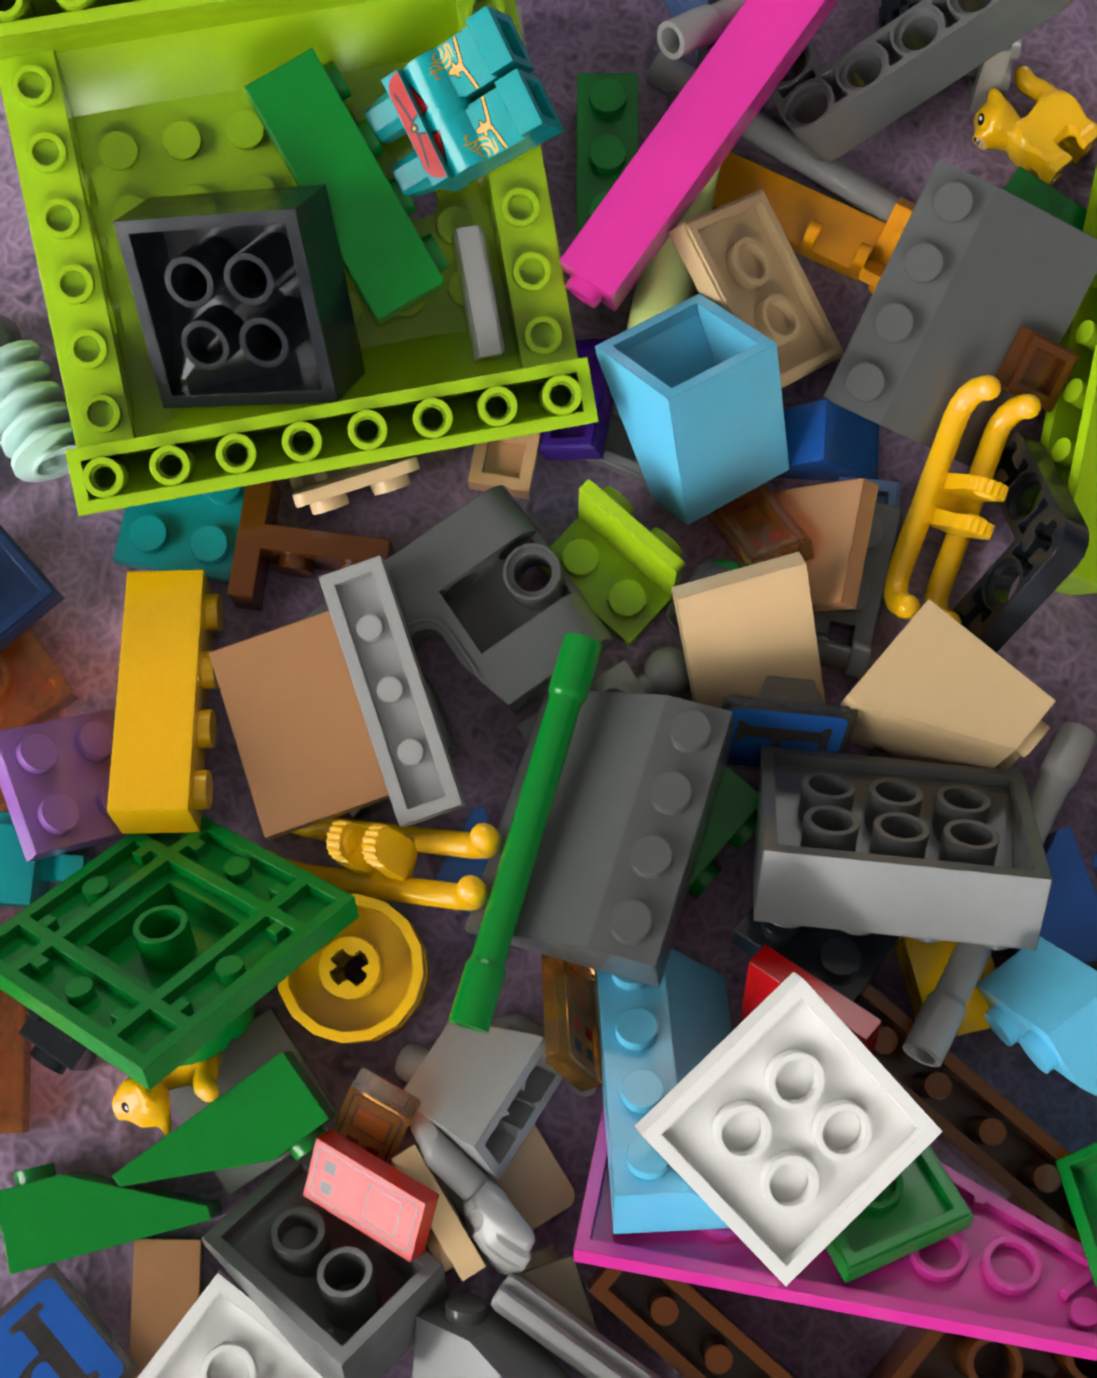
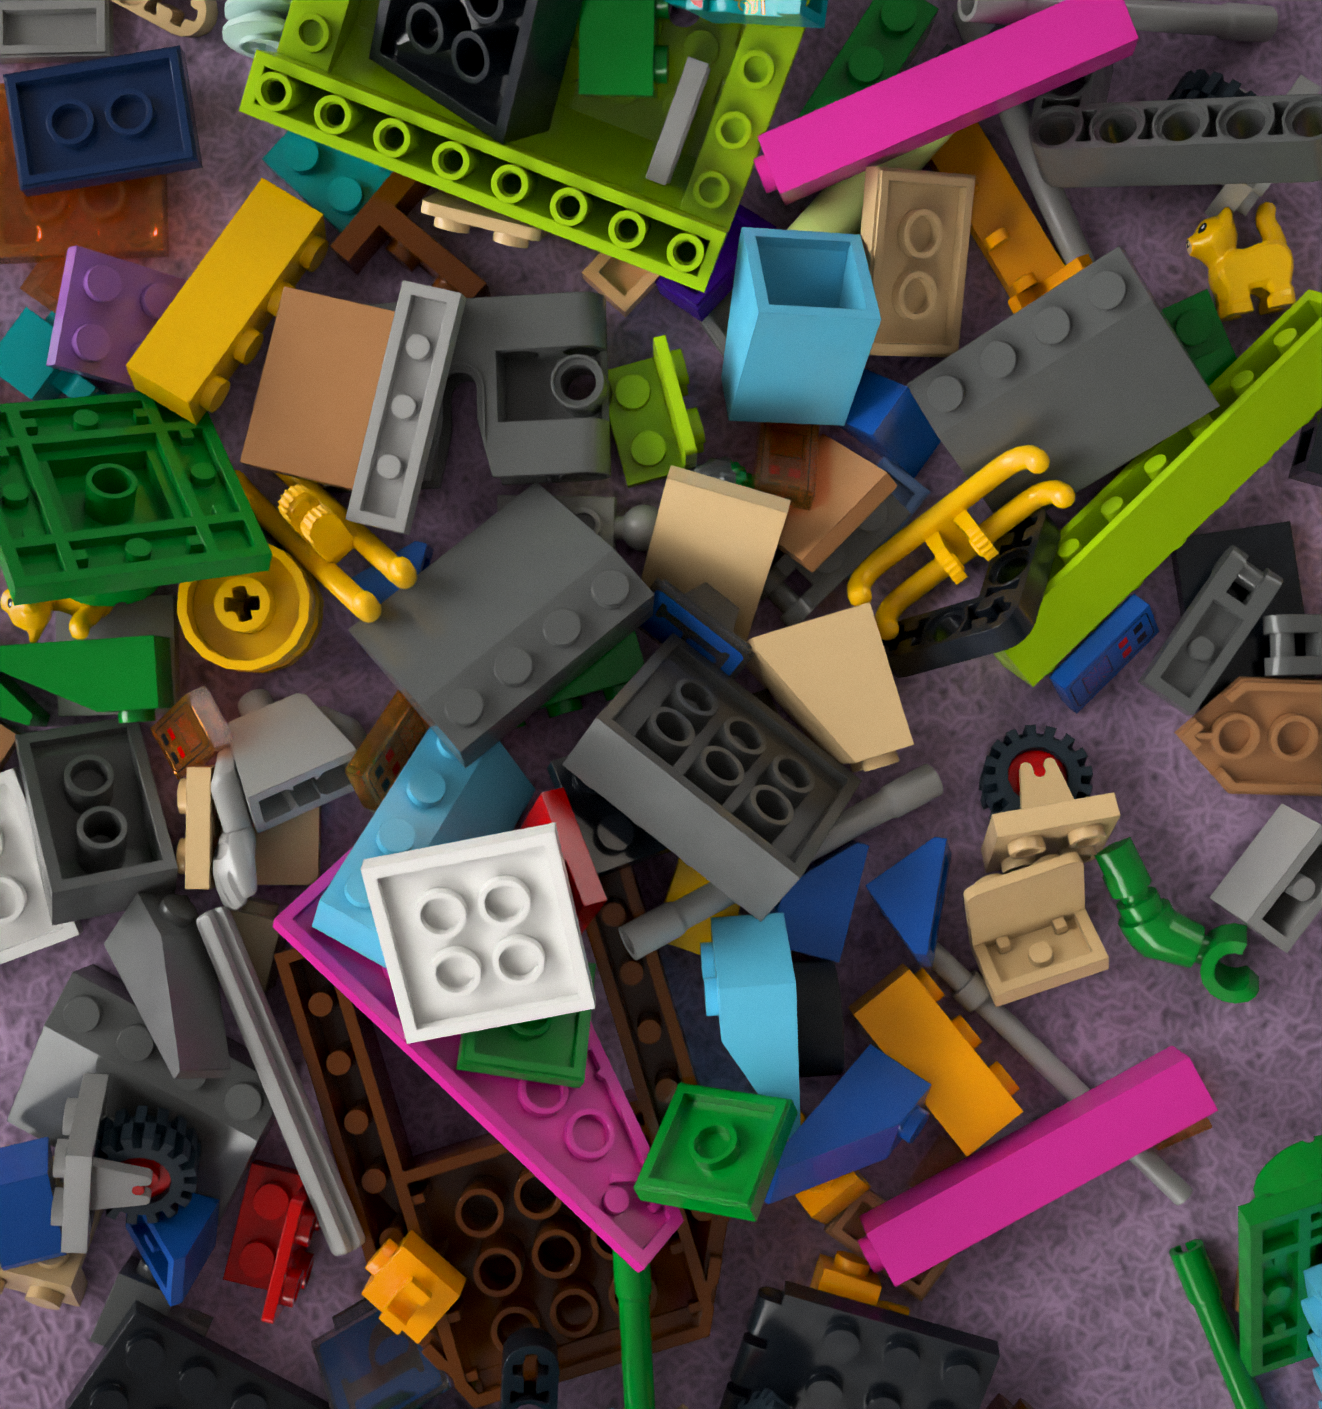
camera: 30 degrees right, 10 degrees up
(370, 1195) = (156, 783): tile -> none
(485, 968) = (338, 670): green piece -> none
(1036, 367) = (1094, 469): reddish brown tile -> none

